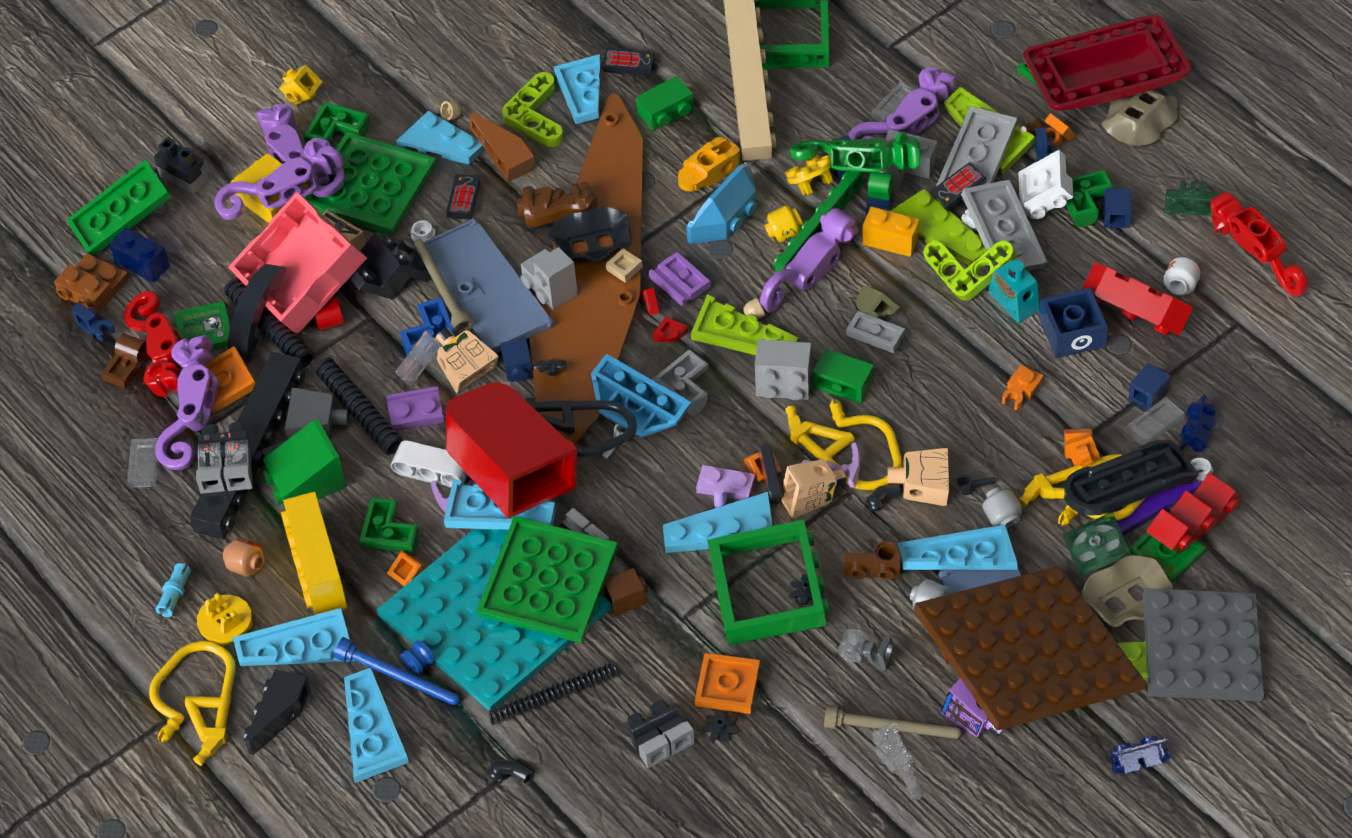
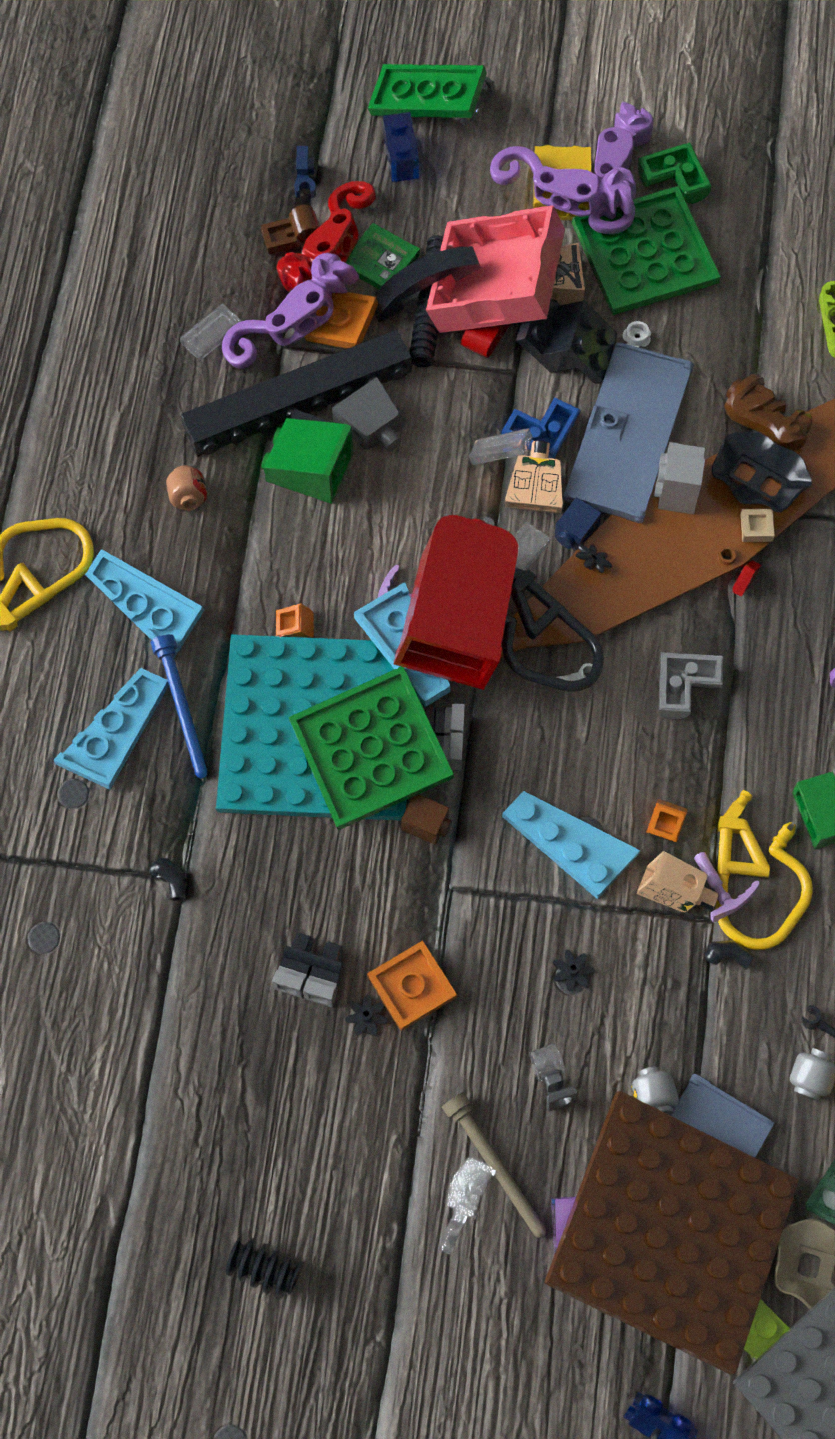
camera: 45 degrees right, 15 degrees up
(90, 282) = (343, 137): dark orange plate -> none
(173, 590) = (111, 463): medium azure pin -> none
(180, 166) = (516, 96): black hips -> none
(217, 610) = (119, 539): yellow plate -> none
(224, 458) = (253, 389): hips -> none
(281, 704) = (73, 641): black slope -> none
(300, 85) = (695, 111): yellow brick -> none
(312, 554) = (230, 539): yellow brick -> none
(358, 406) = (414, 443): black piece -> none
(383, 533) = (306, 572): green brick -> none
(415, 408) = (456, 487): medium lavender plate -> none
(417, 657) = (210, 708): blue wheel -> none
(426, 464) = (404, 543): white beam -> none
(441, 137) = (749, 262): medium azure wing -> none
(450, 110) = (785, 244): tan hinge -> none
(460, 319) = (570, 445): dark tan piece -> none
(463, 196) = (707, 333): tile -> none
(503, 147) = (785, 324): dark orange slope -> none
(520, 702) = (282, 854): black piece -> none
(650, 402) = (628, 665): dark azure wedge -> none
(669, 330) = (732, 620): red tile -> none
(679, 279) = (793, 582): medium lavender plate -> none
(725, 484) = (616, 806): lavender plate -> none
(732, 330) = (785, 678): lime wing -> none
(754, 308) = (821, 671): tan hinge -> none
(770, 473) = (655, 837): black tile -> none
(777, 623) = (501, 900): green window -> none
(783, 369) = (774, 755): light grey brick -> none
(873, 564) = (635, 999): reddish brown plate -> none
(923, 476) = (781, 973): light nougat torso -> none
(965, 550) = (737, 1080): medium azure wing -> none

